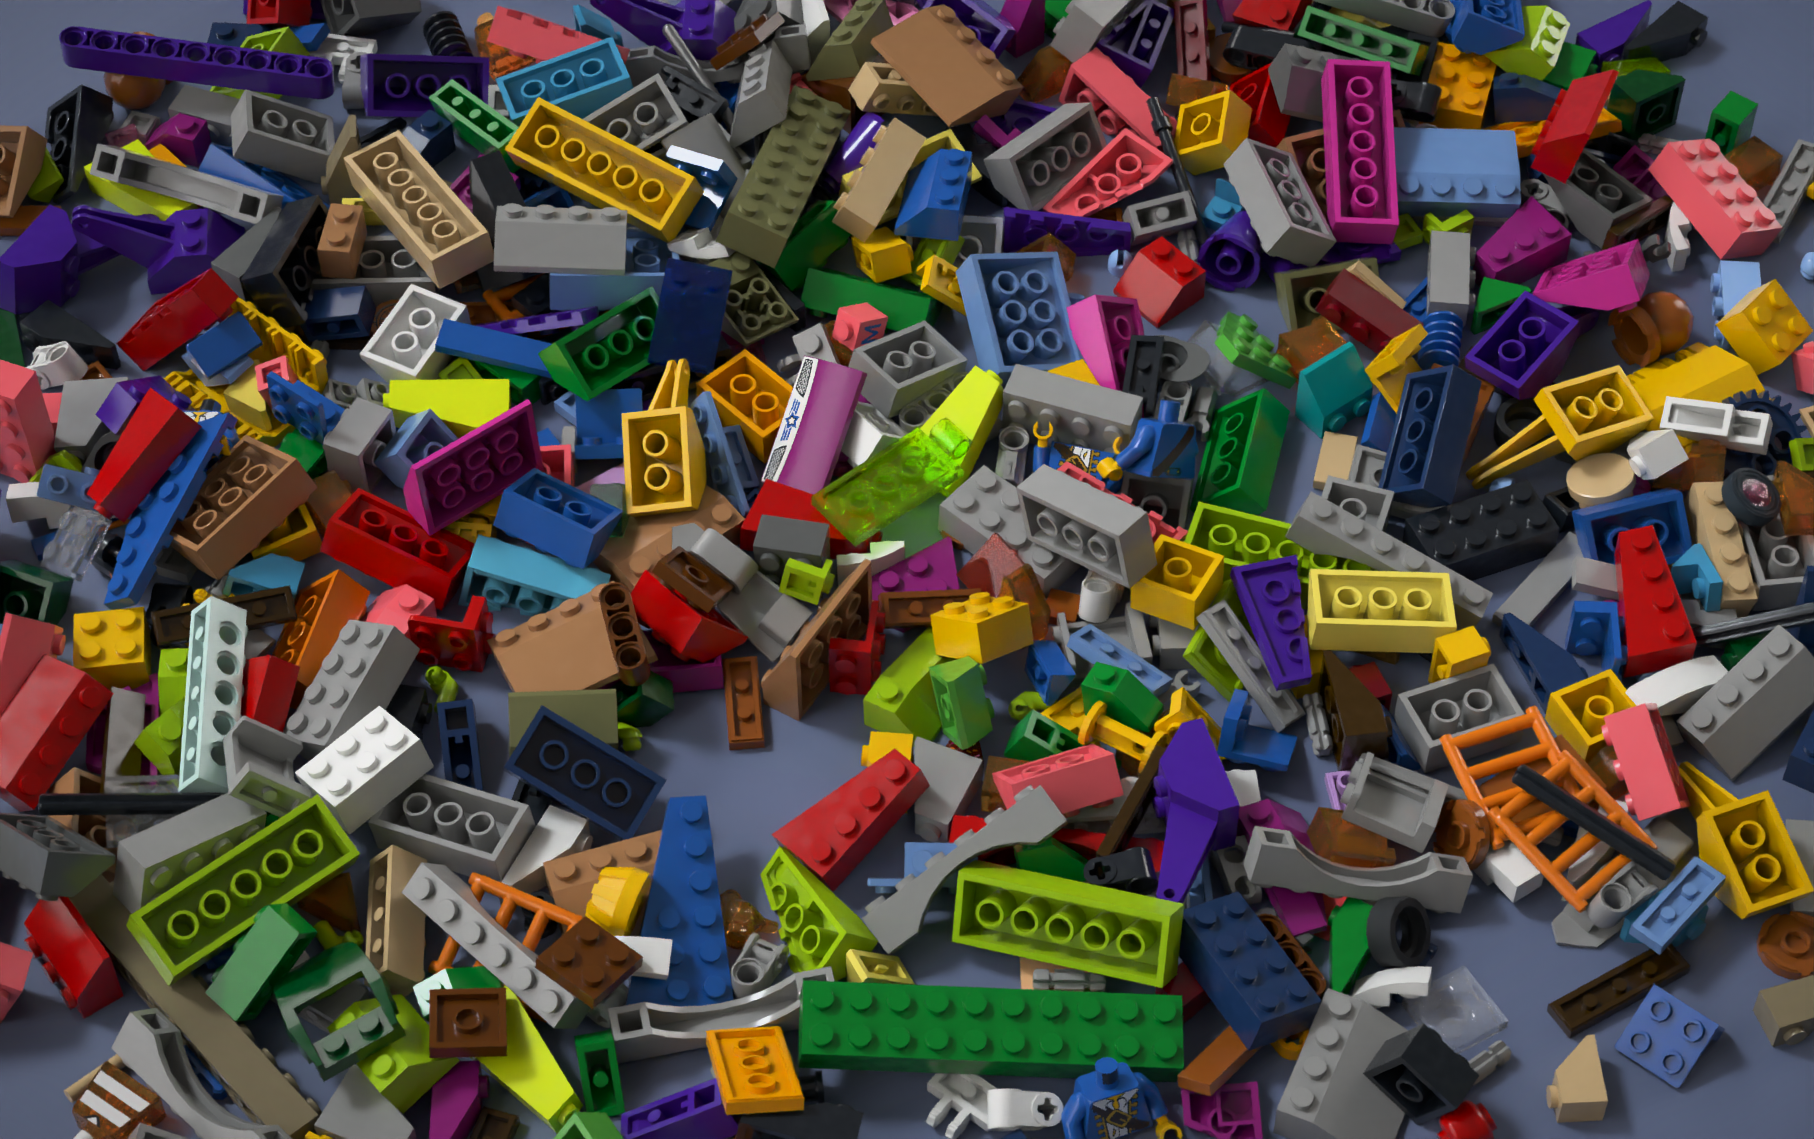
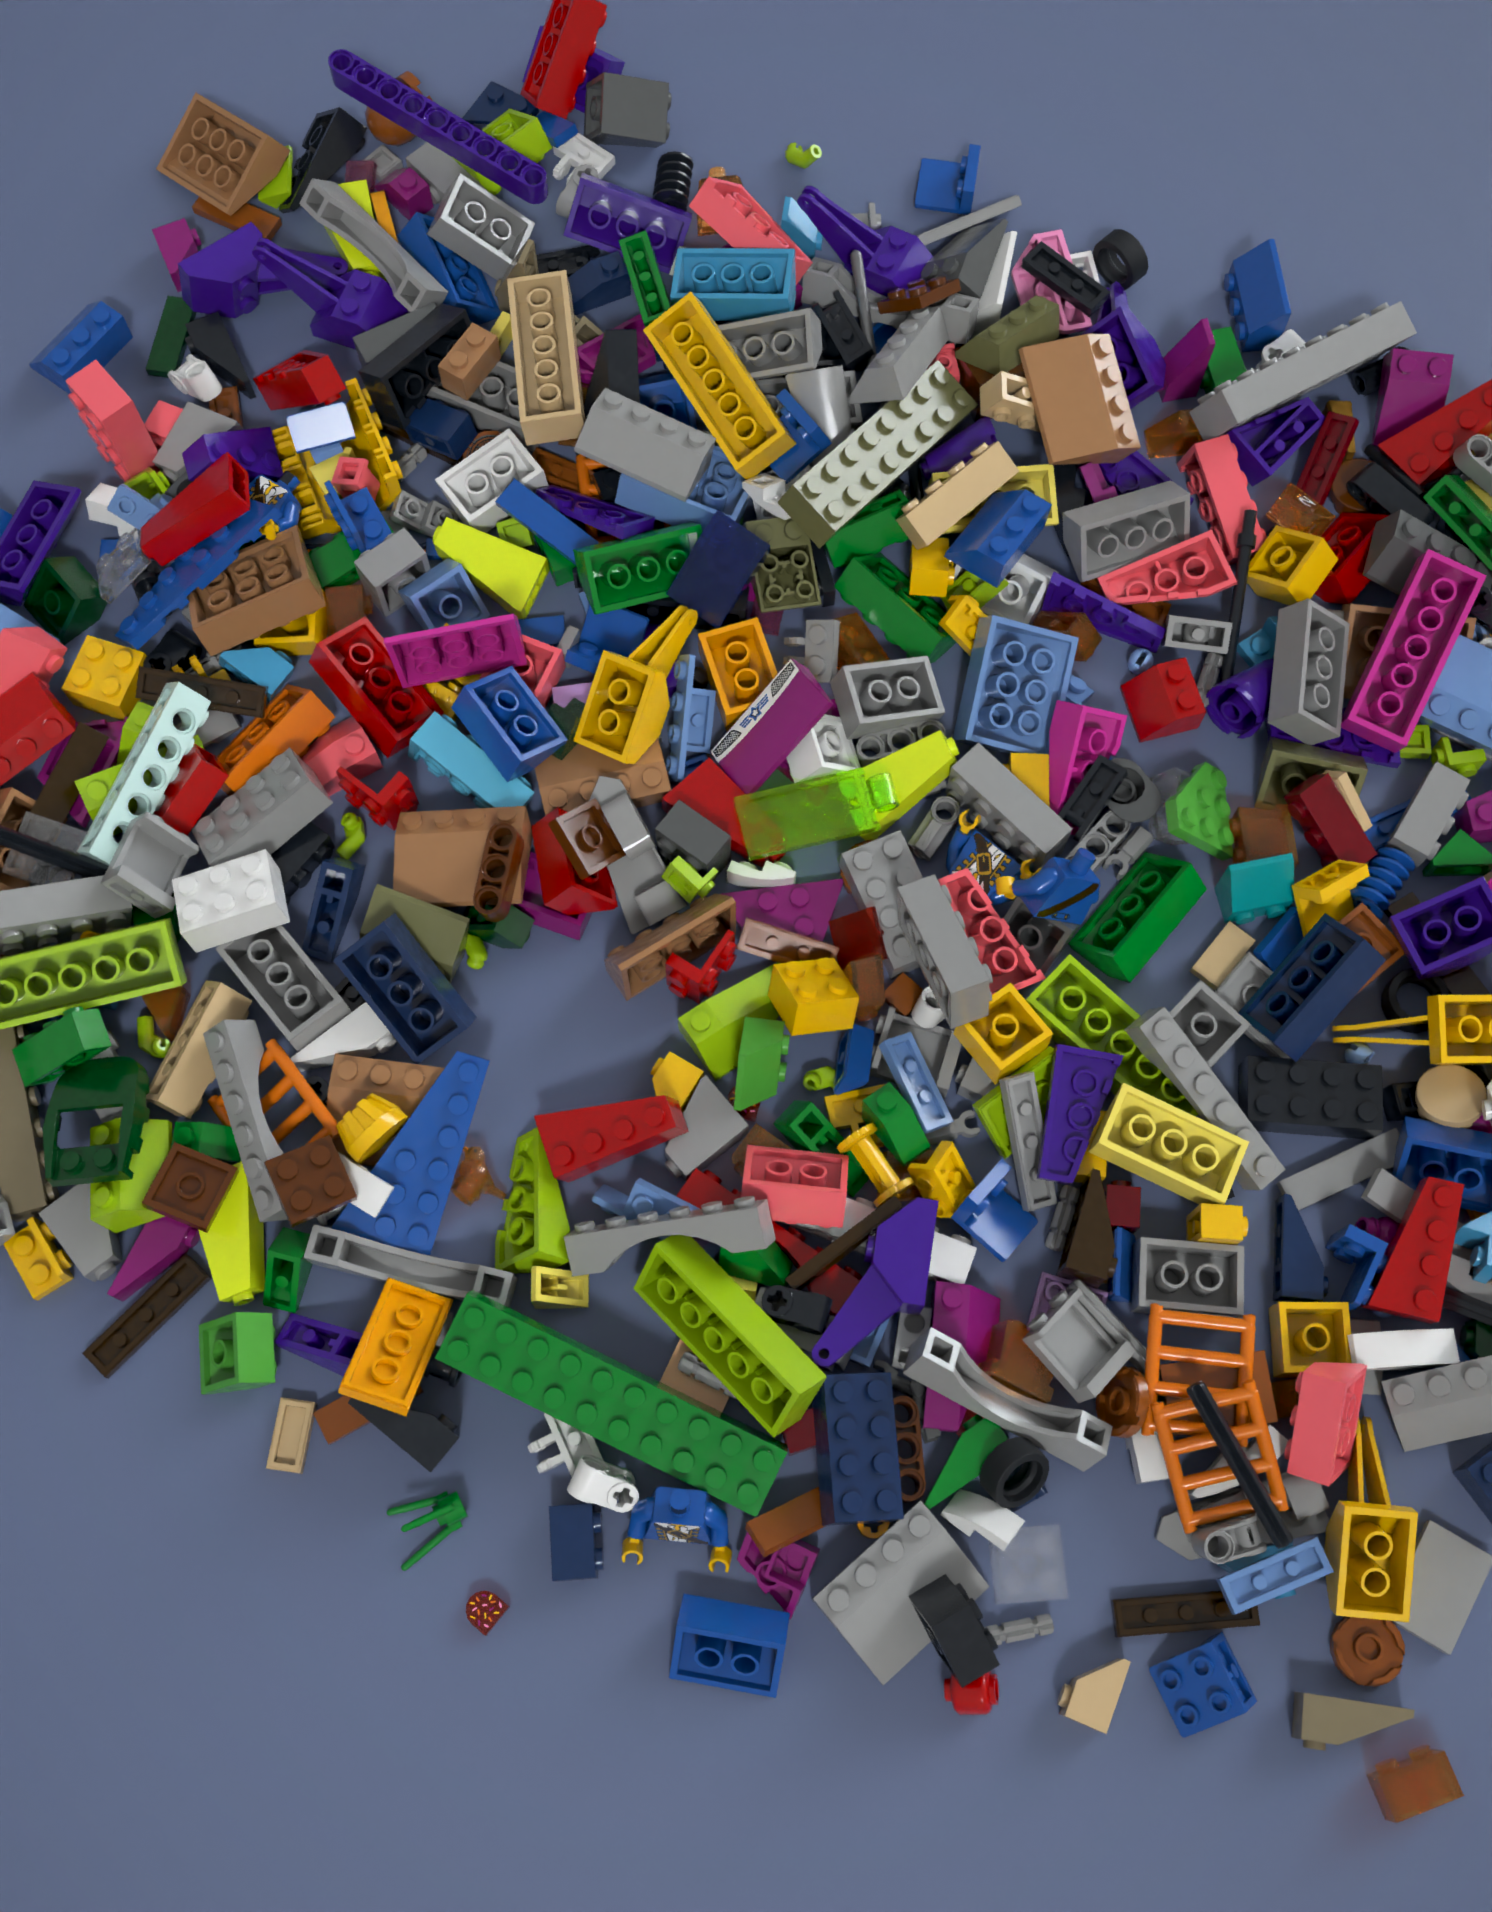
camera: 25 degrees right, 20 degrees up
(743, 703) = (587, 963): dark orange tile -> none
(759, 964) = (466, 1229): light grey piece -> none
(859, 325) = (869, 635): coral brick -> none

